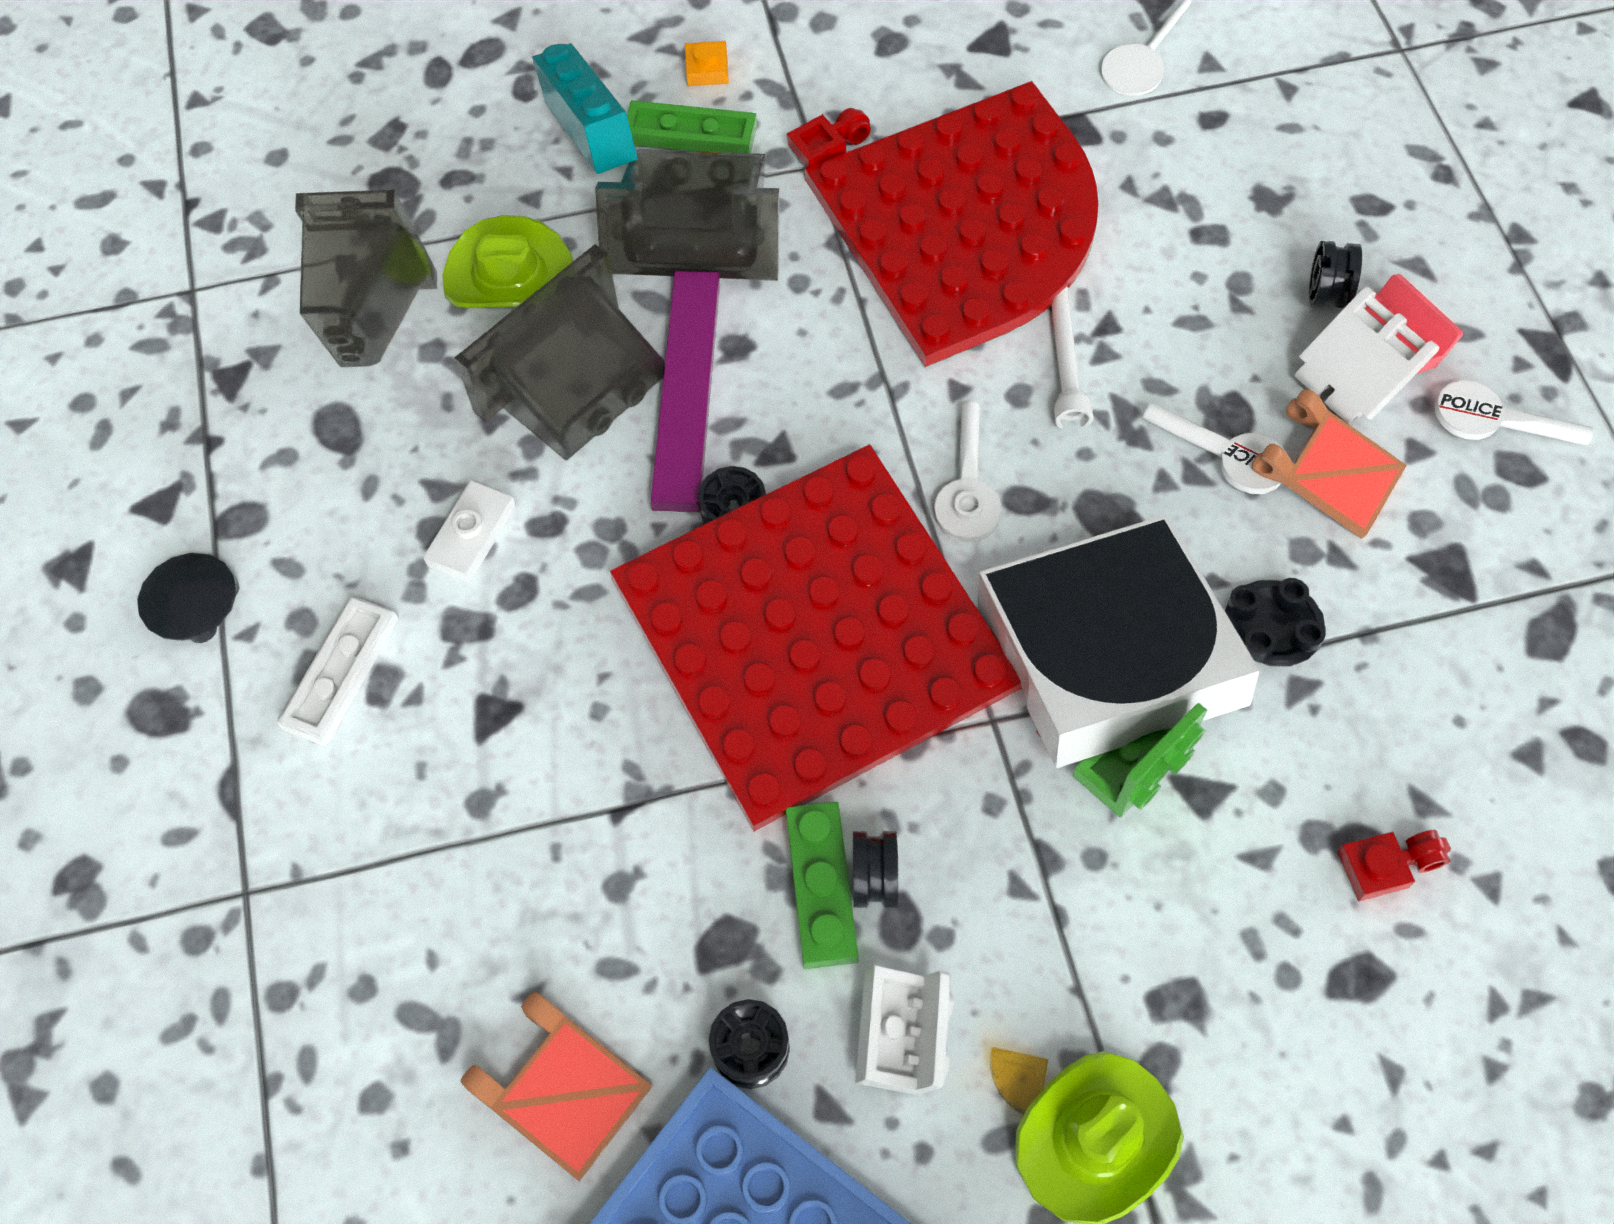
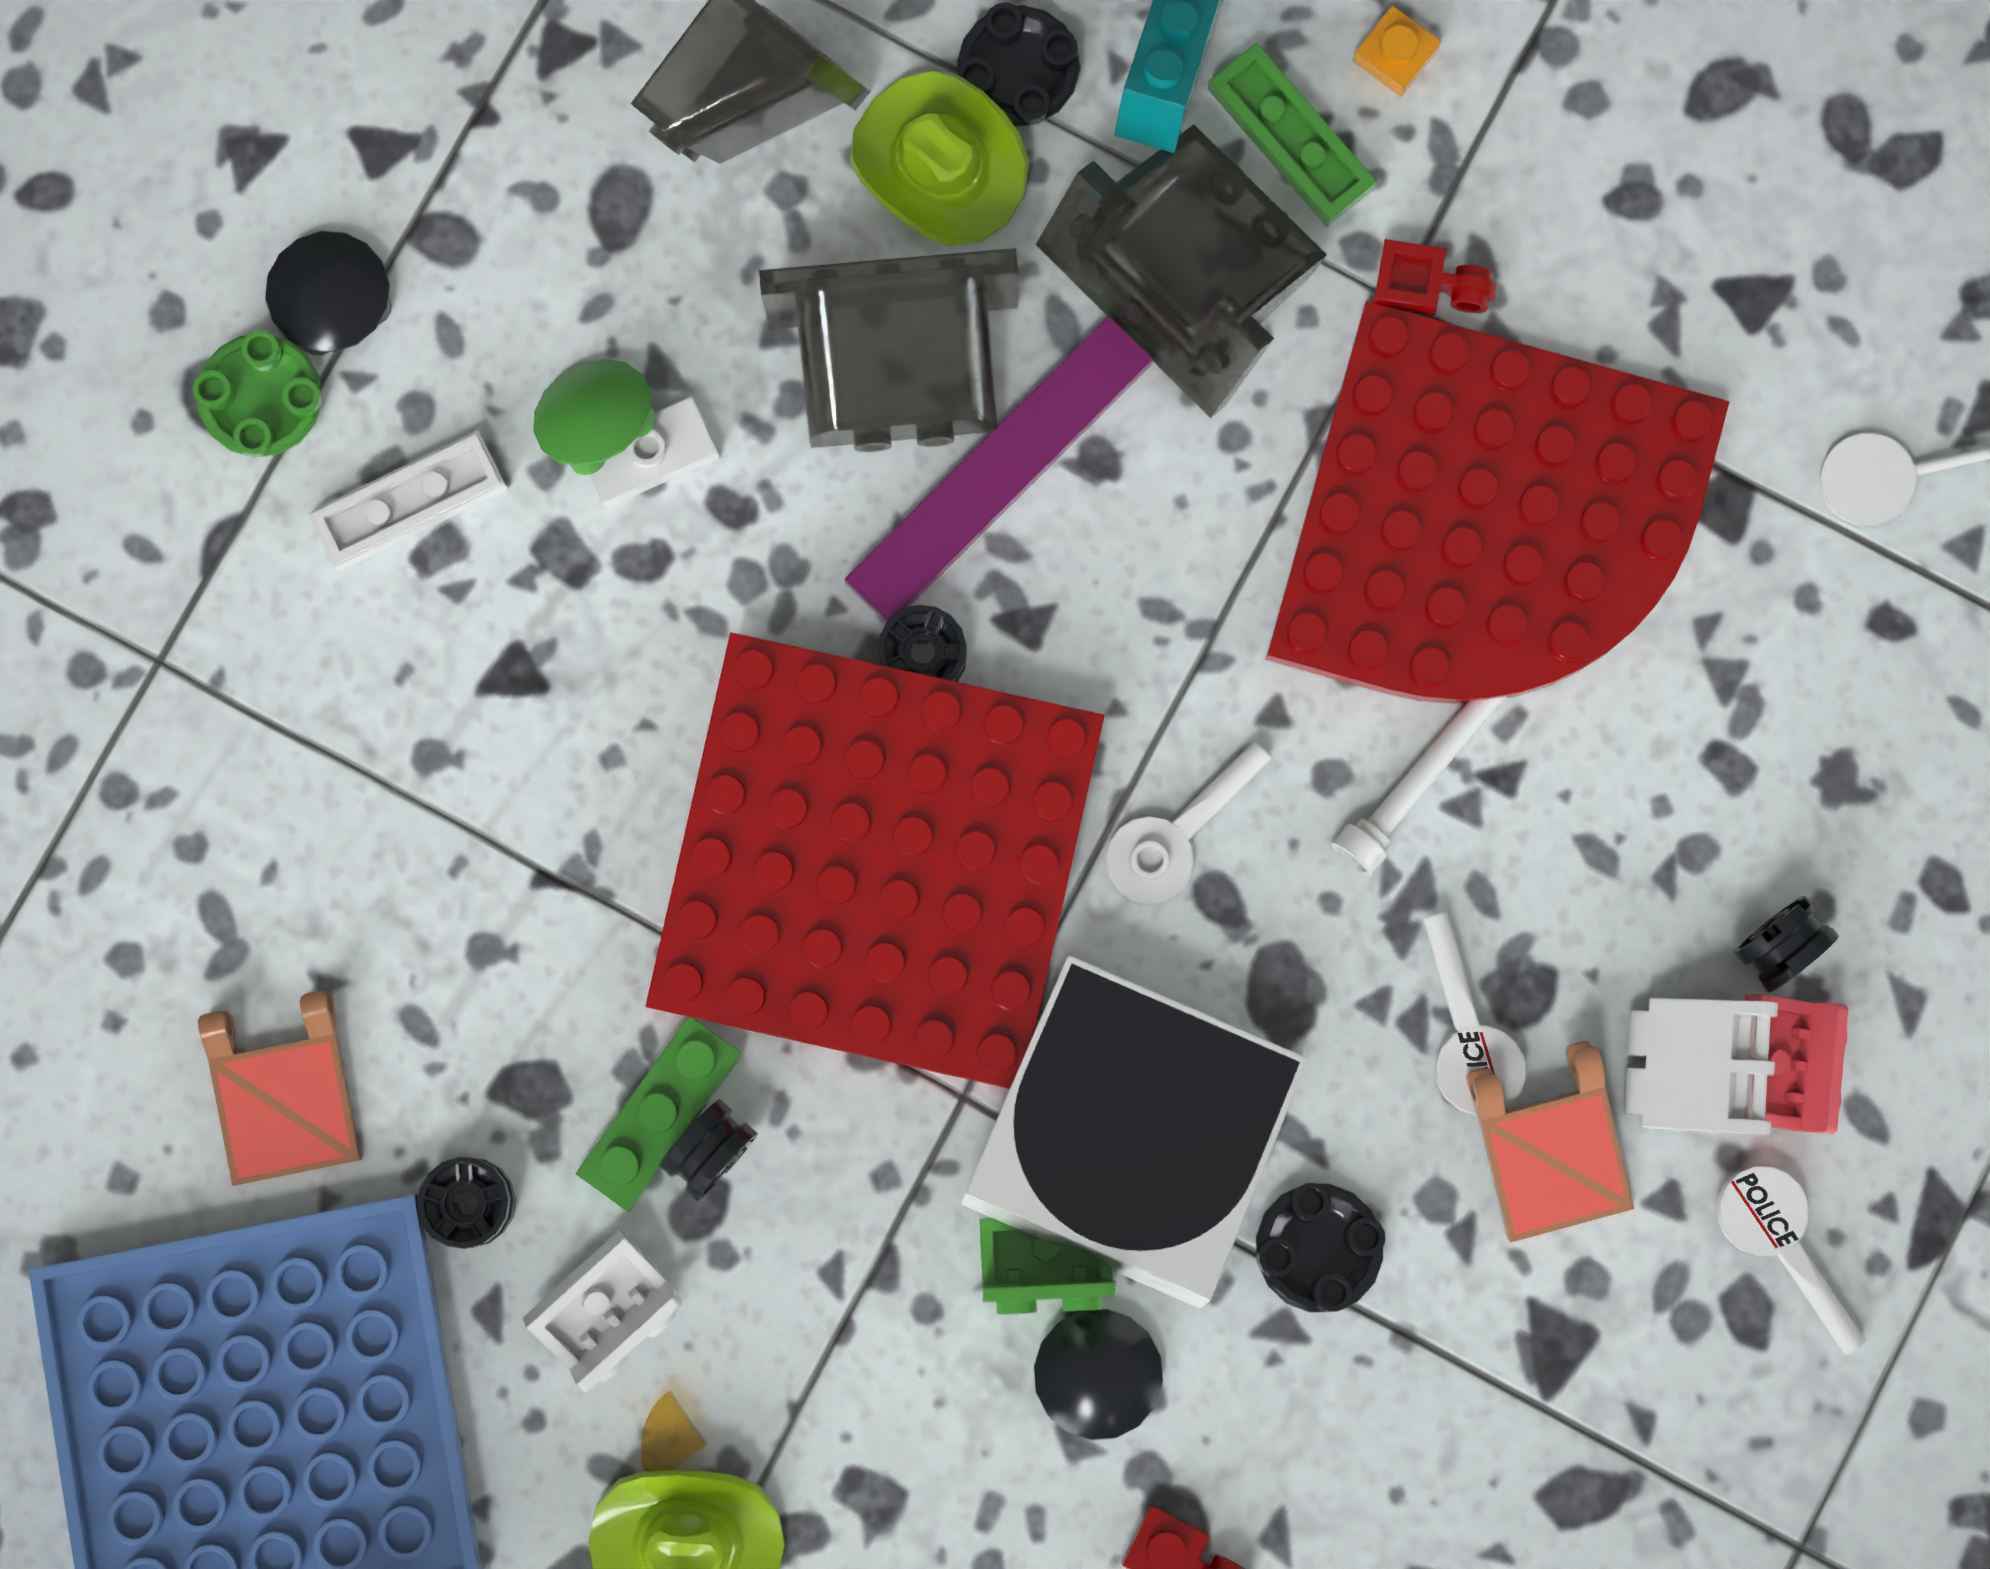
camera: 40 degrees right, 20 degrees up
(187, 683) = (258, 394): none -> bright green dish
(418, 530) = (593, 414): none -> bright green dish
(511, 191) = (1021, 61): none -> black dish
(1231, 801) = (1098, 1374): none -> black dish

